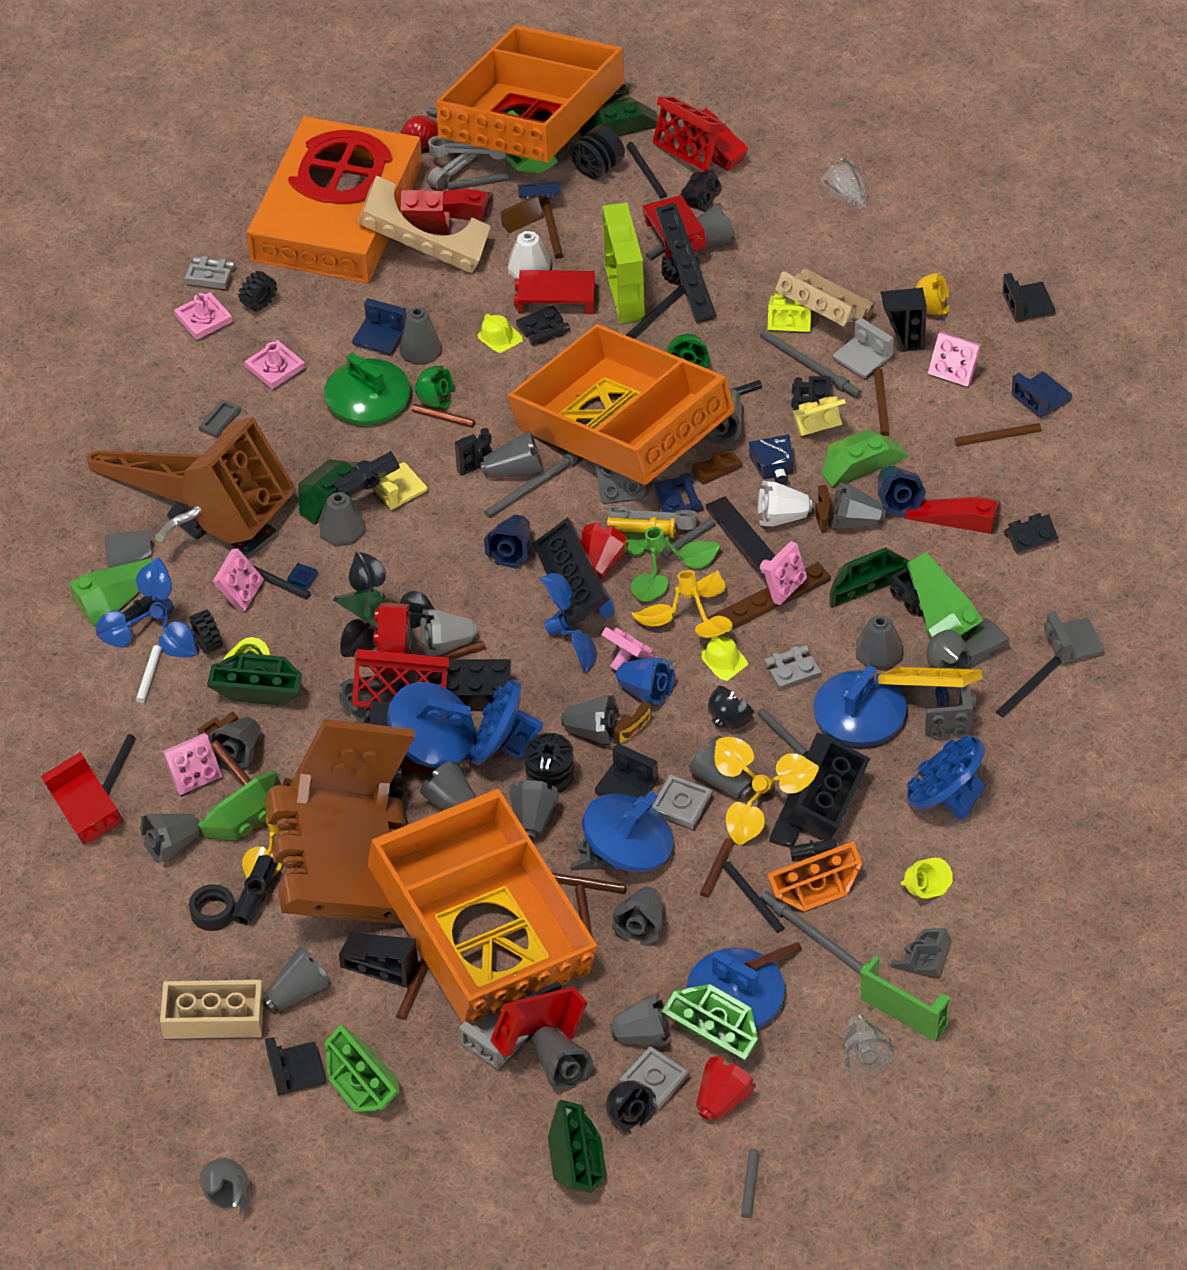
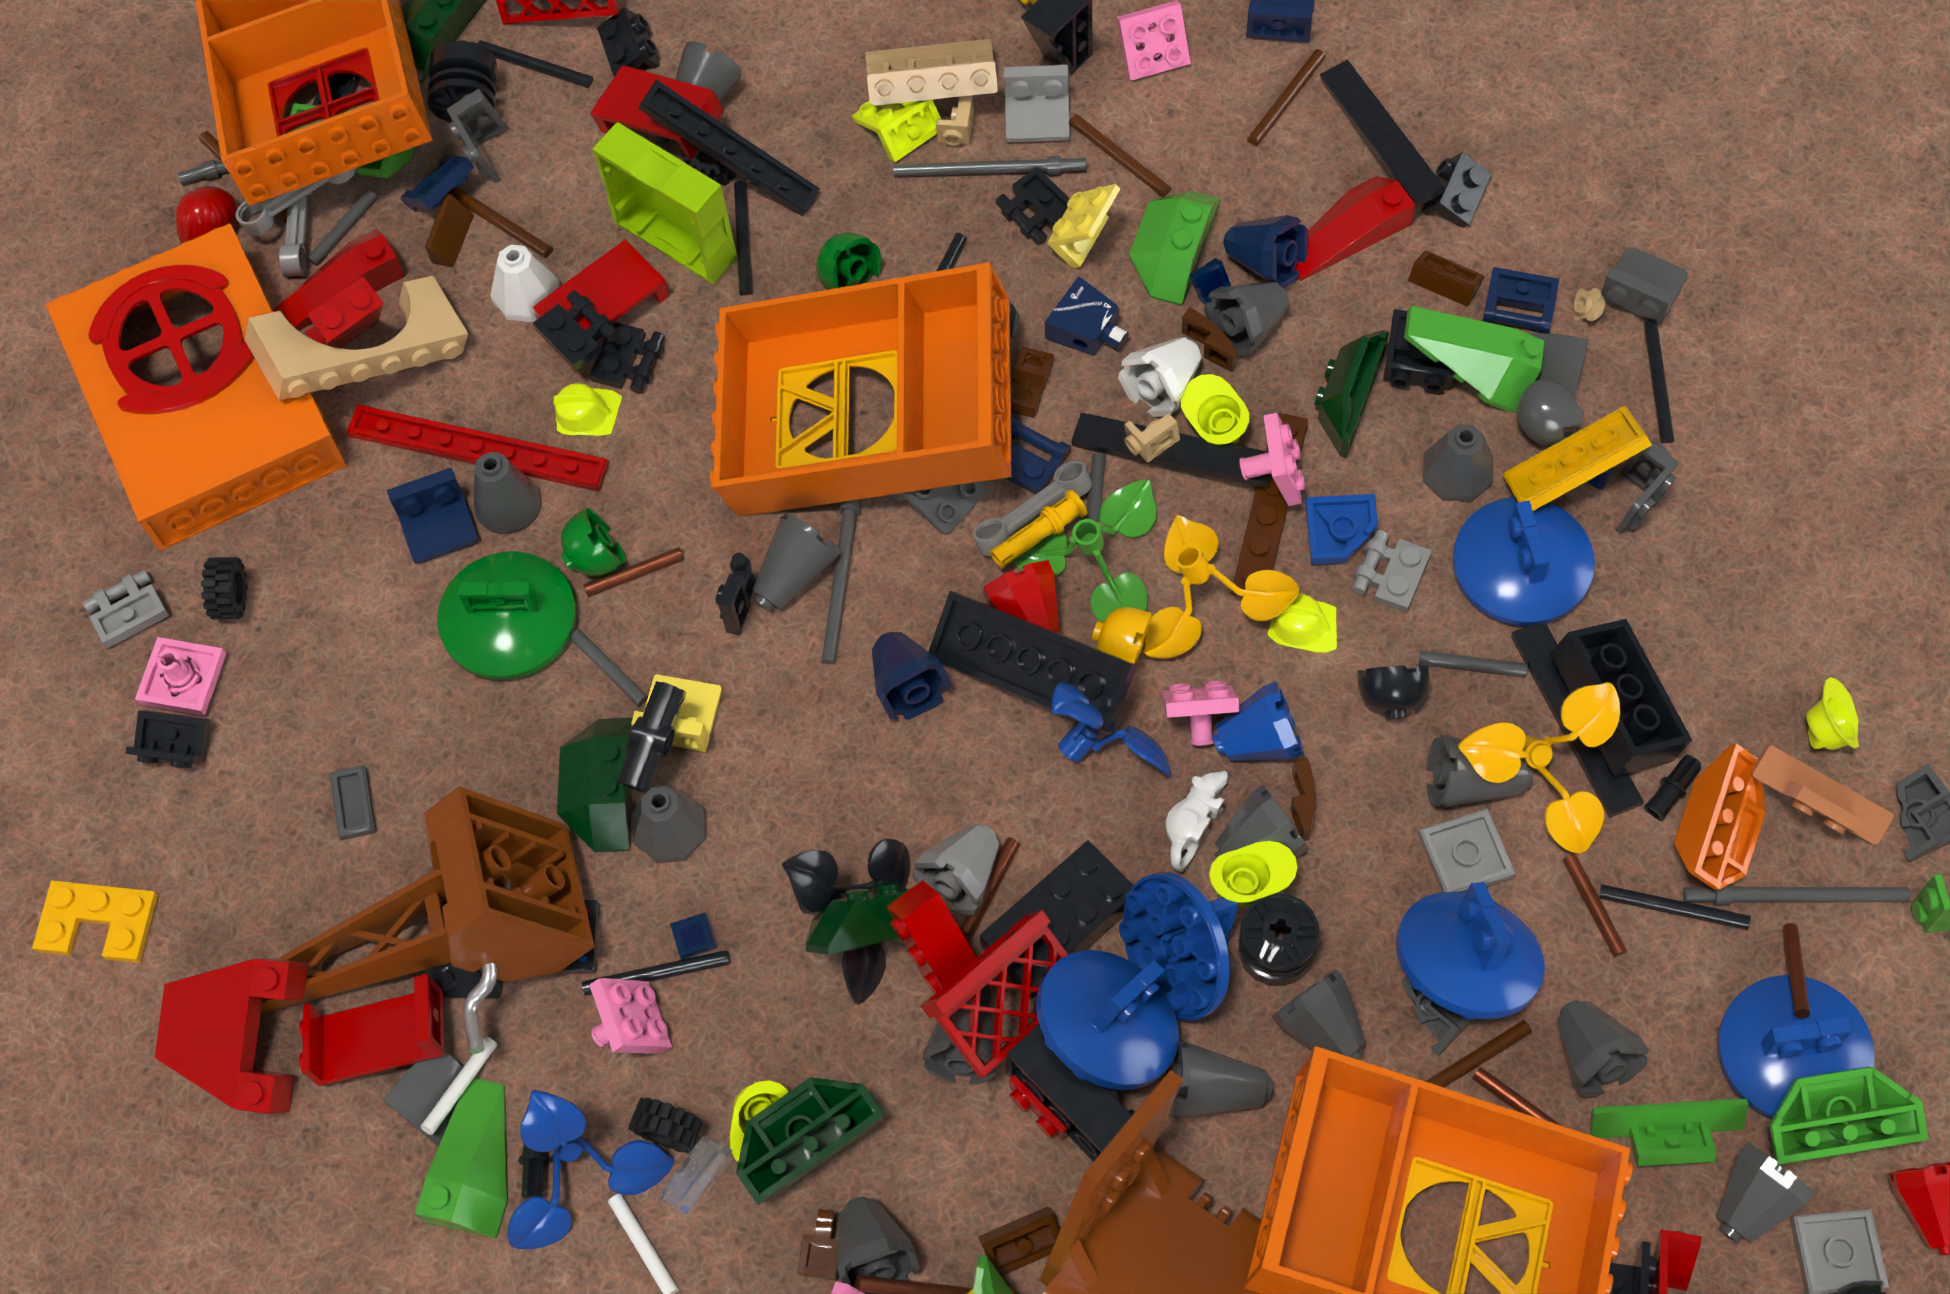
camera: 40 degrees left, 15 degrees up
(67, 457) = (213, 1028): none -> red wedge
(80, 388) = (124, 909): none -> yellow plate
(126, 510) = (373, 1035): none -> red panel
(139, 556) = (457, 1087): none -> white bar
(172, 336) = (170, 738): none -> black bracket
(195, 664) = (696, 1176): none -> clear bracket
(272, 360) = (340, 663): bright pink plate -> none
(388, 436) = (609, 668): none -> dark grey bar
(446, 330) = (469, 445): none -> red tile
(519, 292) = (567, 337): none -> black plate
(564, 722) = (1253, 872): none -> neon yellow piece
(572, 693) = (1190, 818): none -> white animal
(579, 174) = (475, 123): none -> dark grey bracket
(625, 597) = (1123, 633): none -> yellow cylinder
(629, 774) = (1376, 878): black bracket -> none
(636, 971) = (1670, 1130): none -> bright green bracket
(739, 524) = (1154, 439): none -> tan bracket
(783, 531) = (1215, 409): none -> neon yellow piece
(788, 630) = (1339, 526): none -> blue plate
(818, 333) = (959, 128): none -> tan bracket
(857, 480) = (1209, 278): none -> clear blue tile
(874, 900) = (1823, 795): none -> nougat bracket
(949, 777) = (1729, 566): blue bracket -> none
(978, 567) = (1445, 278): none -> reddish brown slope
(1006, 597) = (1521, 291): none -> dark blue plate
(1020, 479) = (1381, 133): none -> black tile
(1032, 627) = (1588, 305): none -> tan plate

